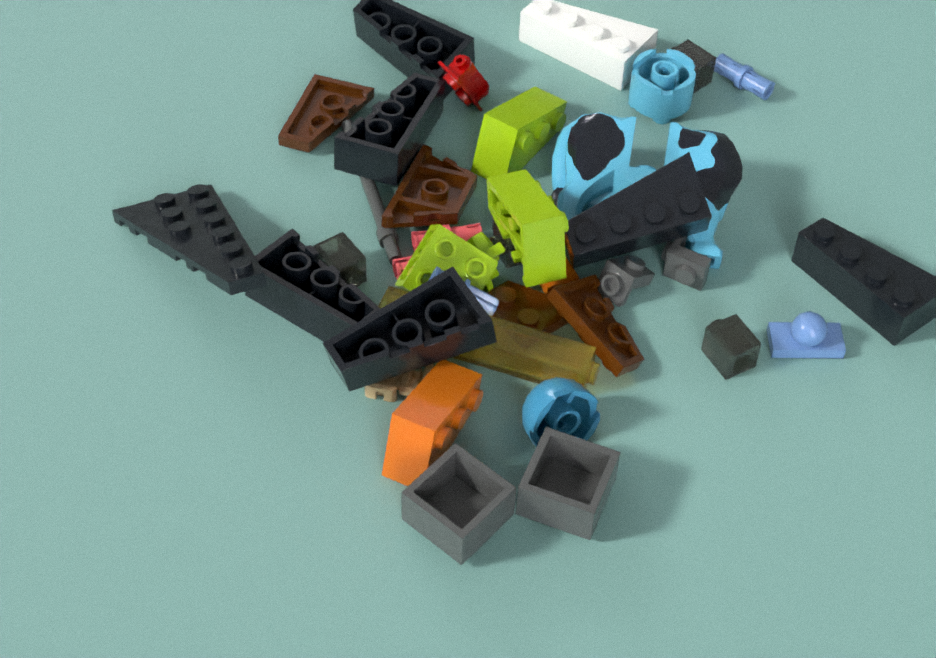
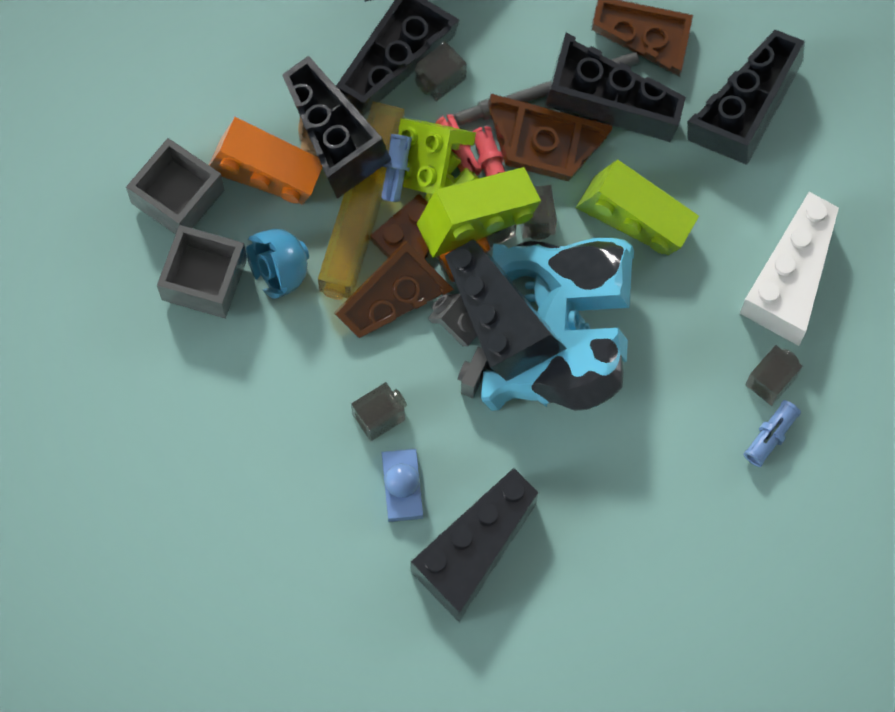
camera: 85 degrees right, 20 degrees up
(466, 79) = (690, 150): red hinge -> none
(662, 84) = (728, 325): medium azure brick -> none

